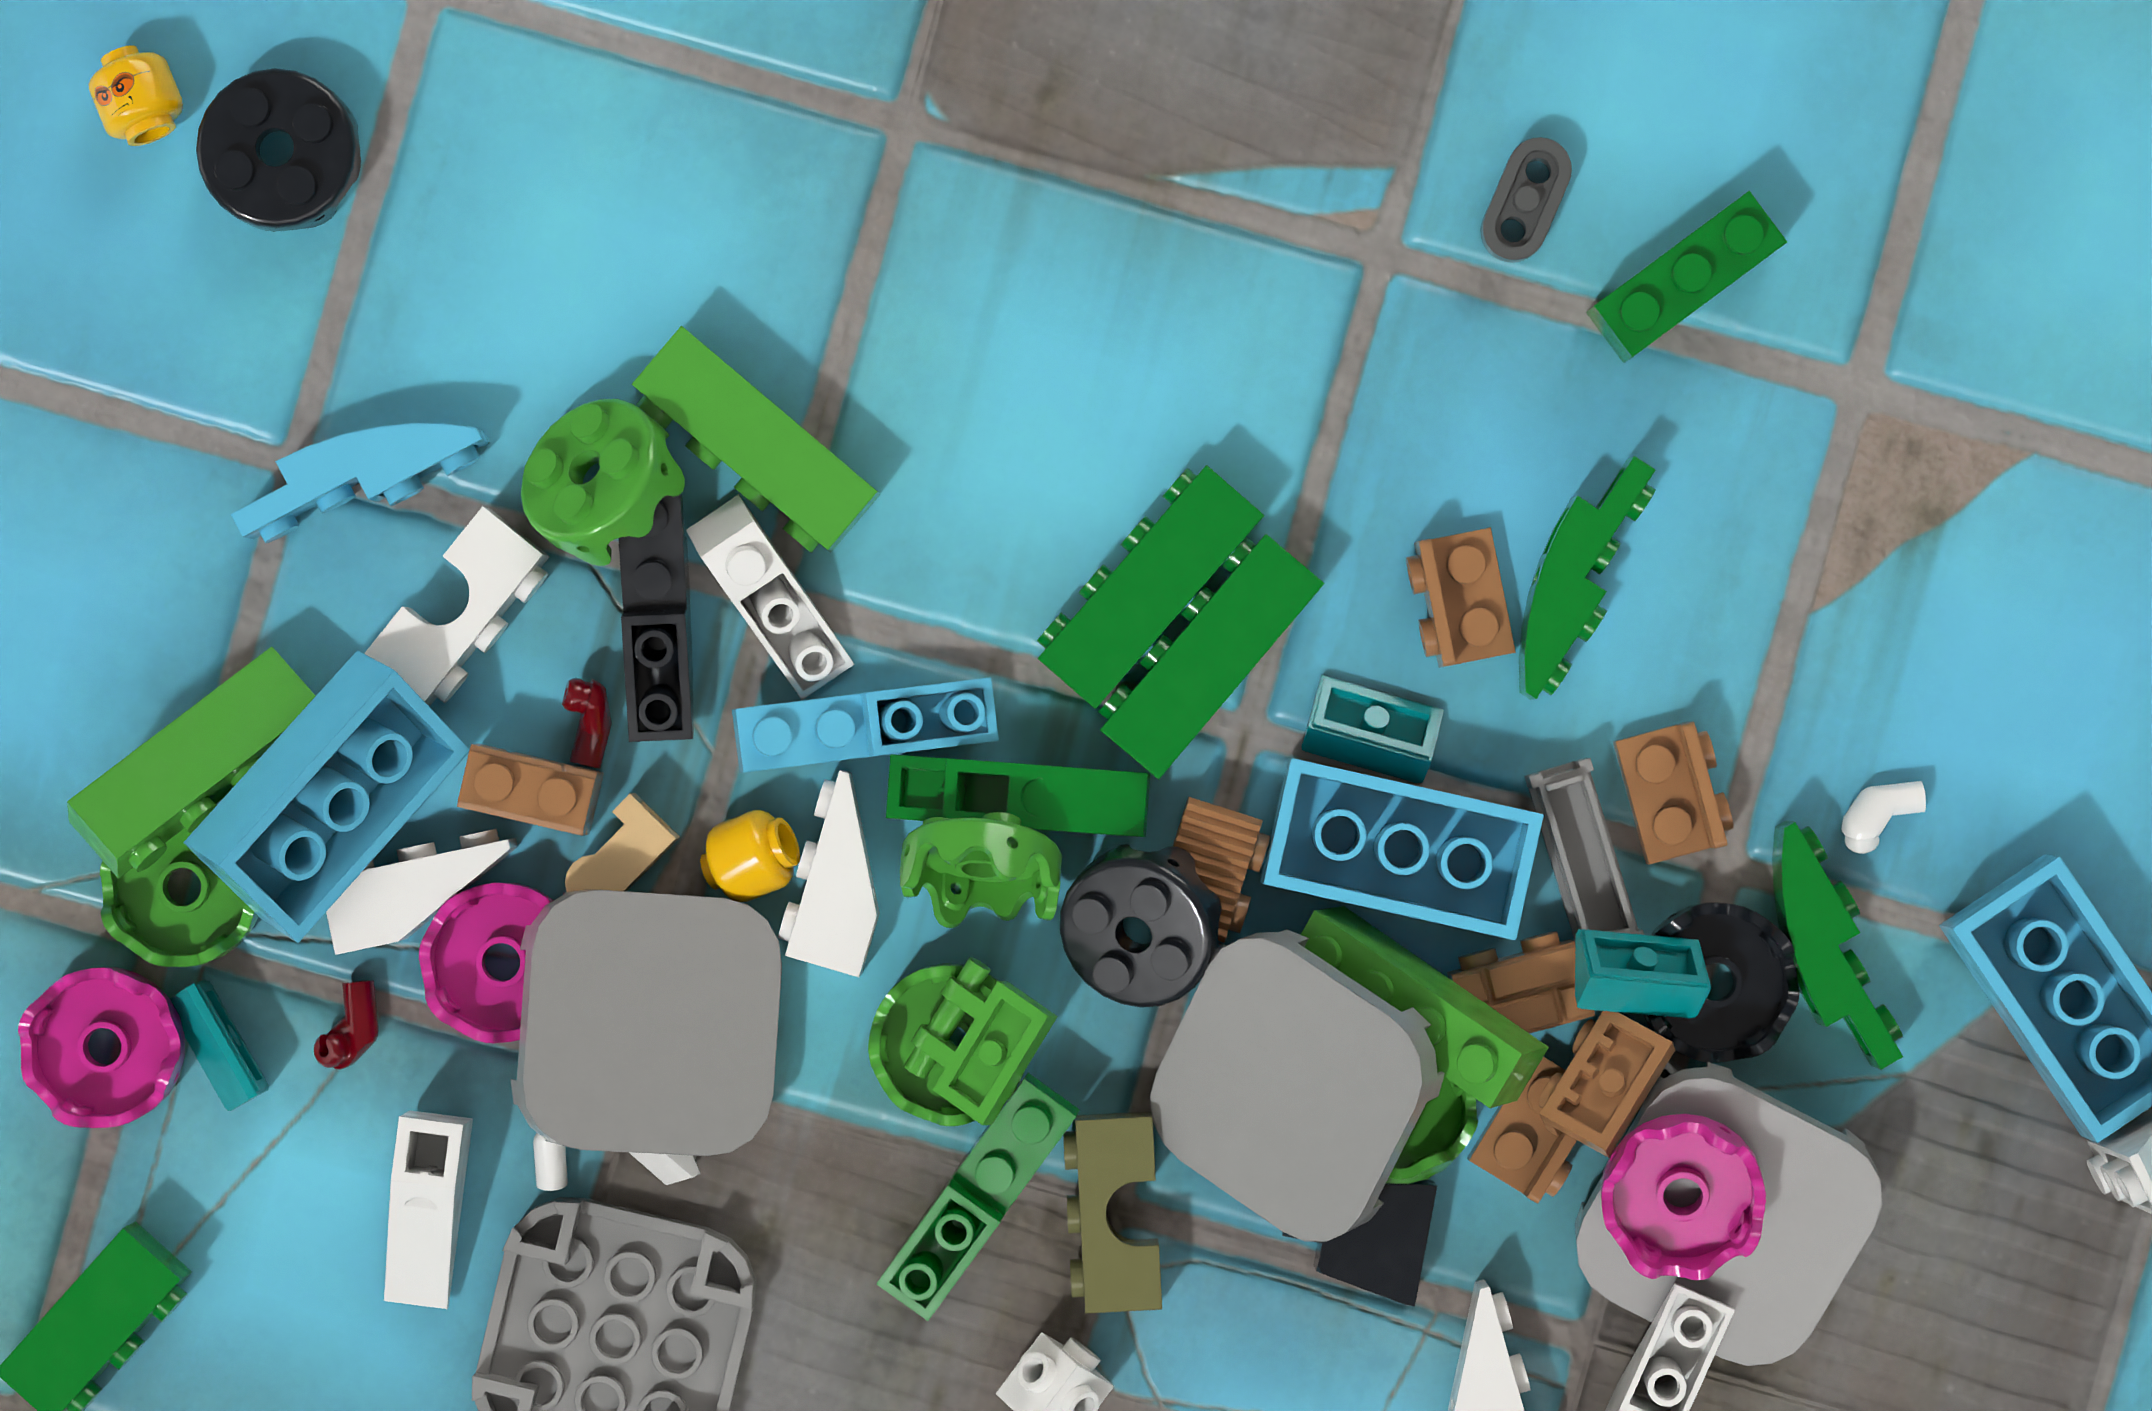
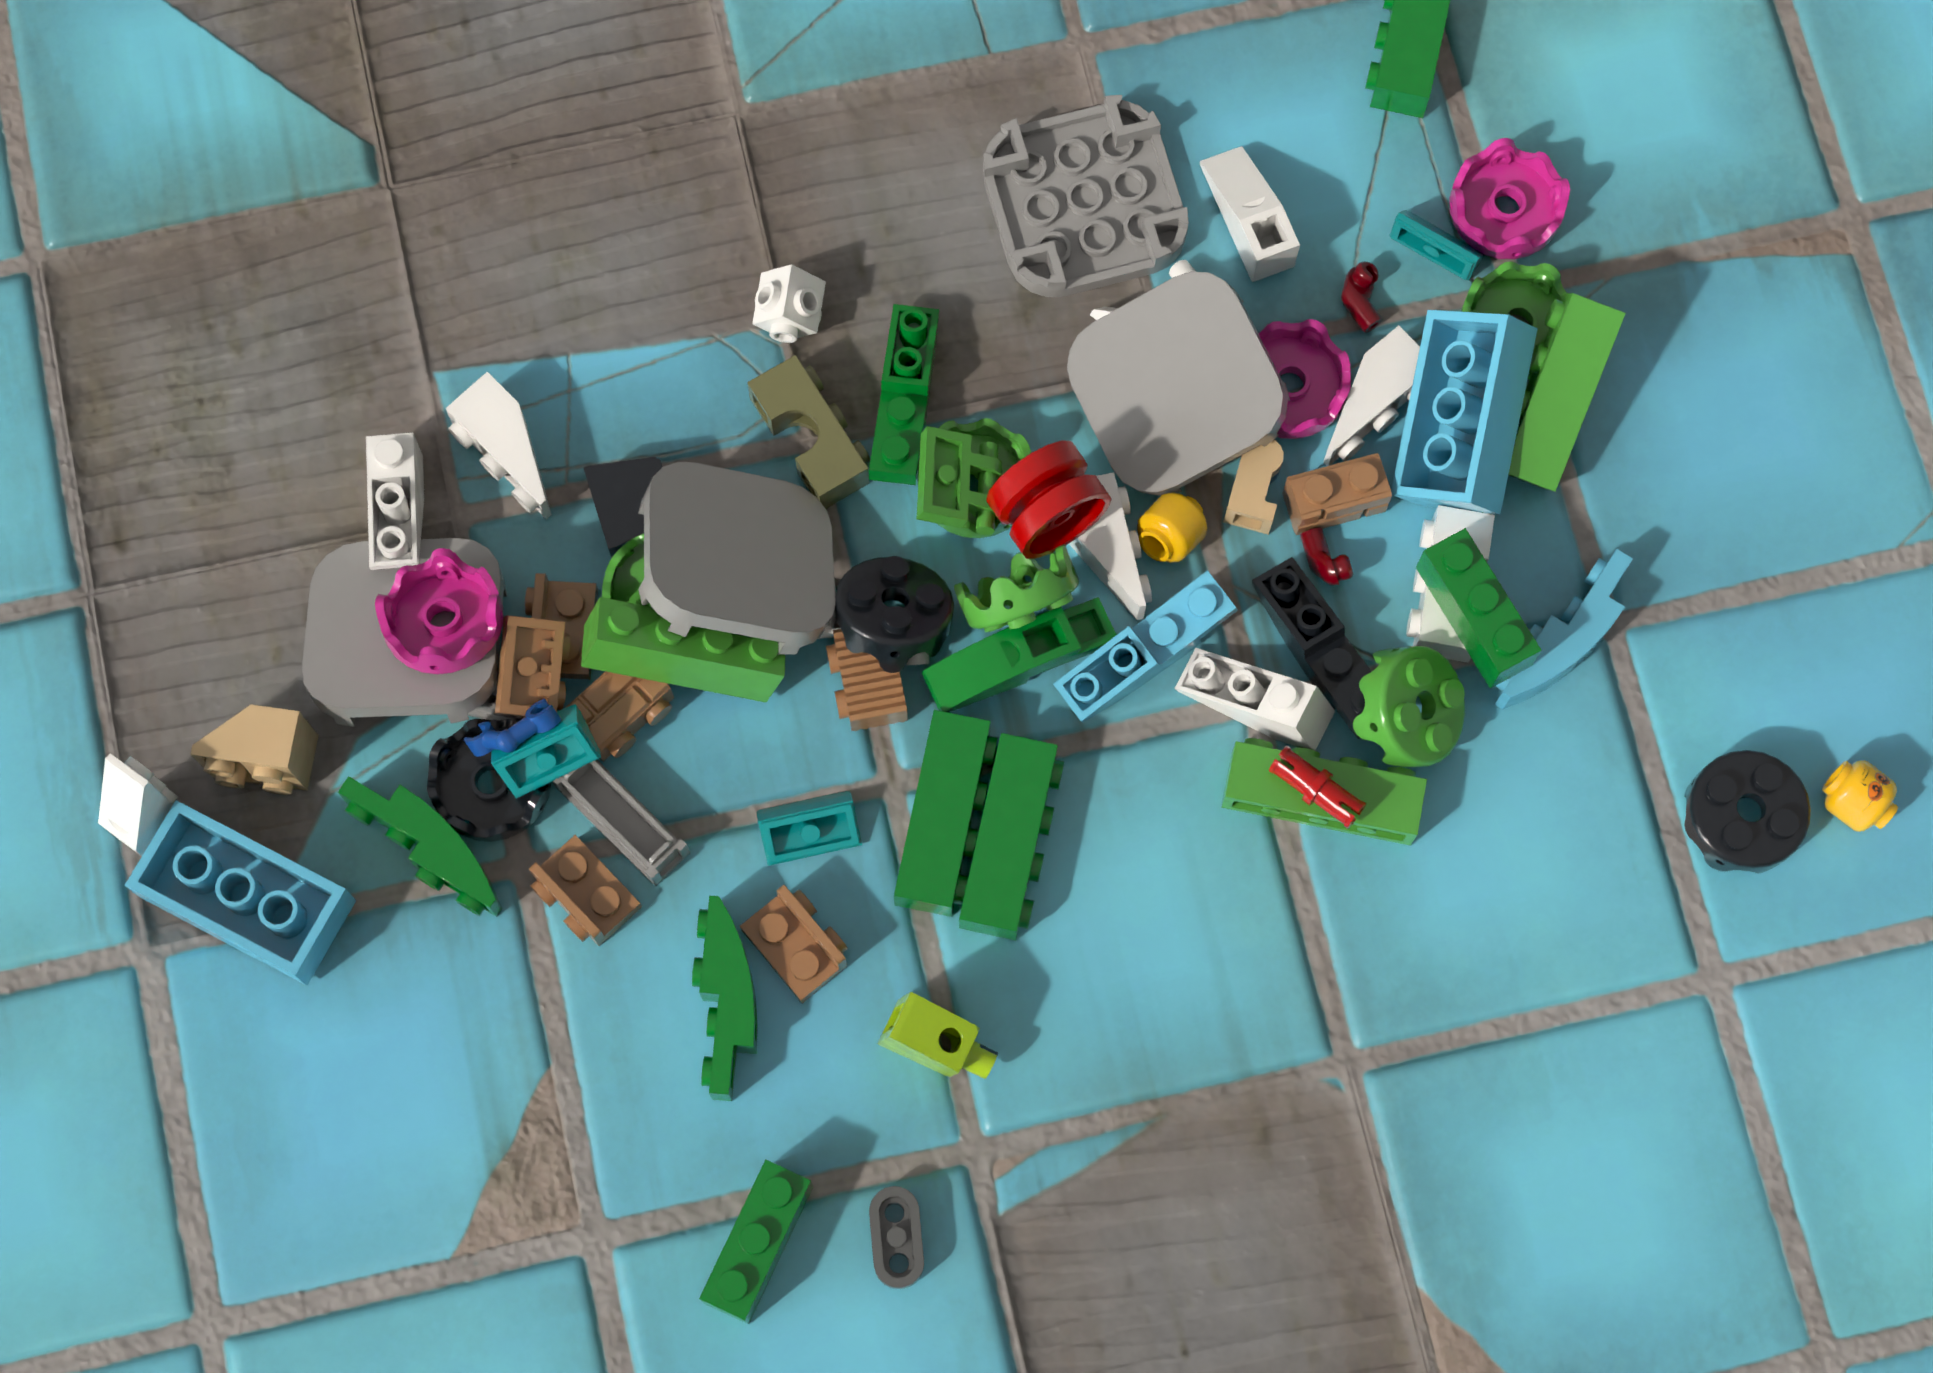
camera: 150 degrees right, 15 degrees down
(456, 545) = (1478, 608): none -> green brick
(767, 438) = (1317, 787): none -> red pin
(892, 954) = (1048, 499): none -> red wheel
(1380, 415) = (915, 1033): none -> lime torso
(1401, 848) = (747, 752): medium azure brick -> none
(1629, 1010) = (539, 719): none -> blue arm
(1874, 809) = (439, 955): white arm -> none
(1962, 1159) = (260, 748): none -> tan slope

